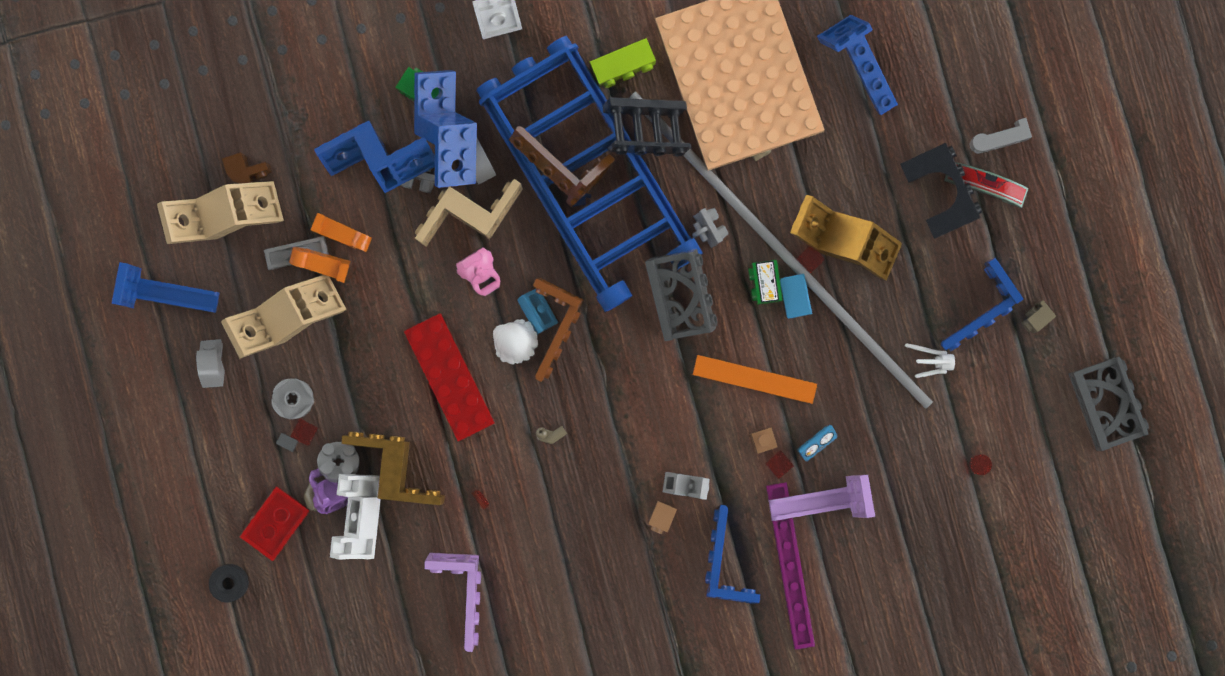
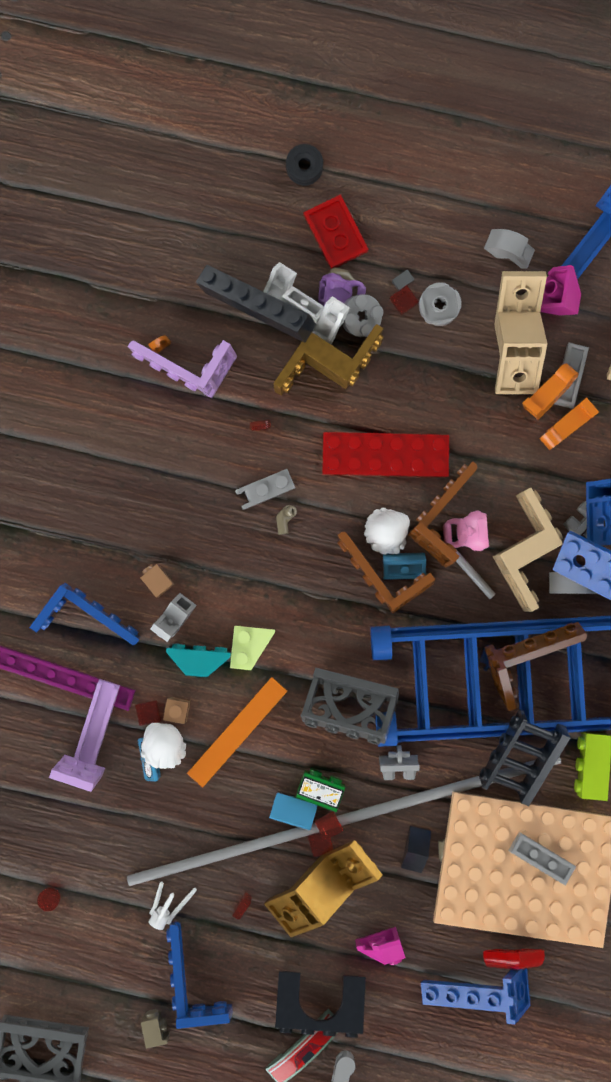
camera: 115 degrees right, 0 degrees up
(227, 298) = (561, 292): none -> dark pink slope
(376, 558) = (256, 303): none -> black brick
(455, 626) = (159, 344): none -> orange tile
(503, 300) = (430, 539): none -> dark orange bracket
(513, 250) = (475, 576): none -> light grey bar
(532, 464) = (267, 488): none -> light grey hinge
(676, 408) = (248, 646): none -> yellowish green wing
(711, 444) = (198, 660): none -> teal slope
(723, 68) = (542, 858): none -> light grey tile
(772, 175) = (416, 849): none -> black slope
(791, 259) = (329, 826): none -> clear red tile
(799, 436) = (163, 746): none -> white hair
(818, 48) = (513, 959): none -> red brick
(867, 162) = (382, 946): none -> dark pink slope
(897, 297) = (242, 906): none -> clear red tile

